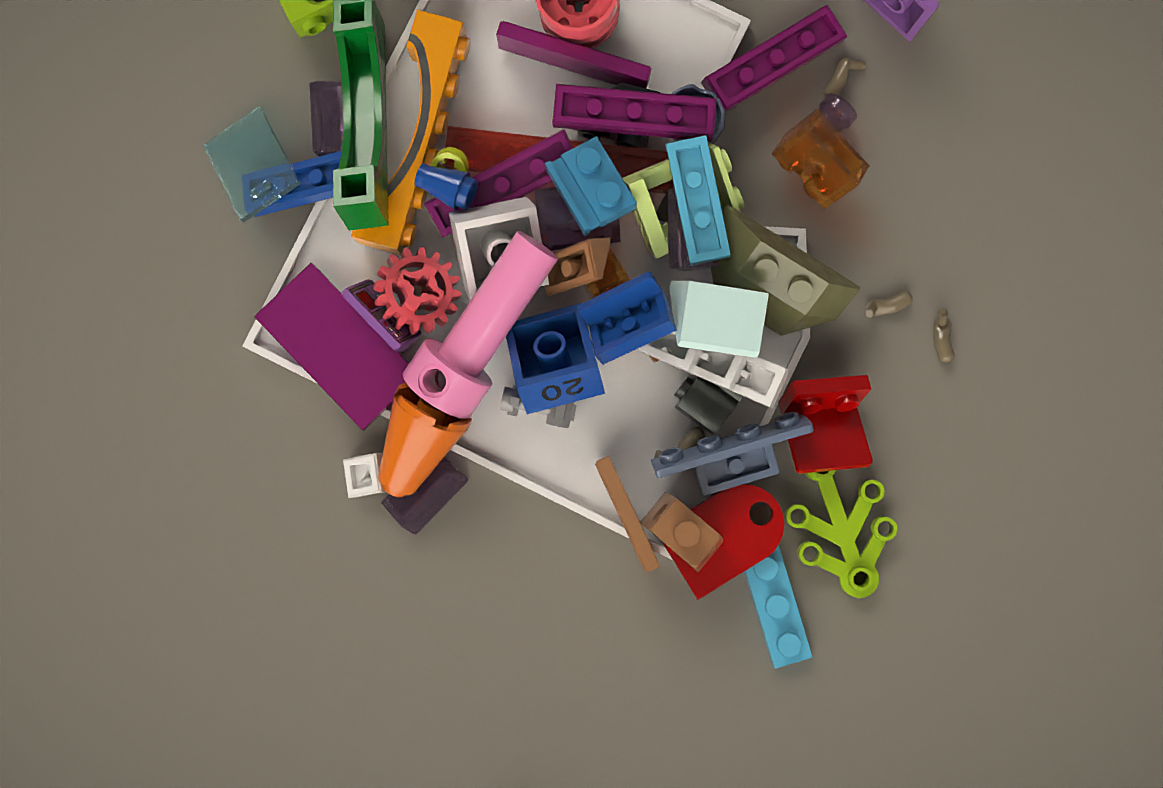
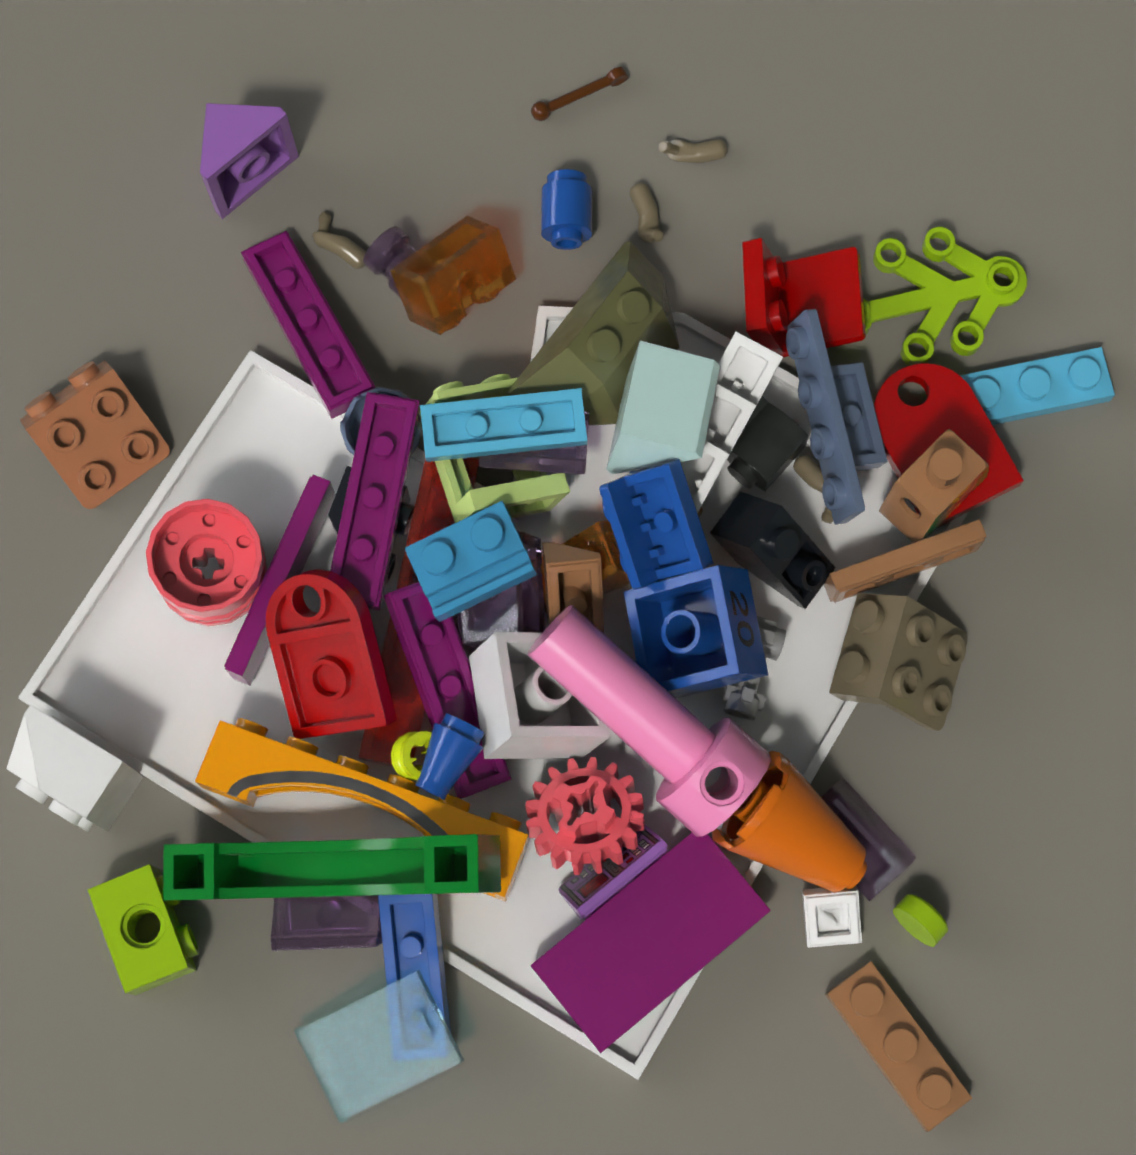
camera: 85 degrees left, 10 degrees down
(279, 528) = (898, 1046): none -> medium nougat plate
(367, 539) = (921, 920): none -> lime tile
(514, 92) = (327, 657): none -> red tile
(553, 514) = (900, 658): none -> dark tan bracket
(628, 414) = (773, 548): none -> black slope
(884, 242) = (566, 209): none -> blue brick
(998, 273) = (541, 110): none -> reddish brown hinge

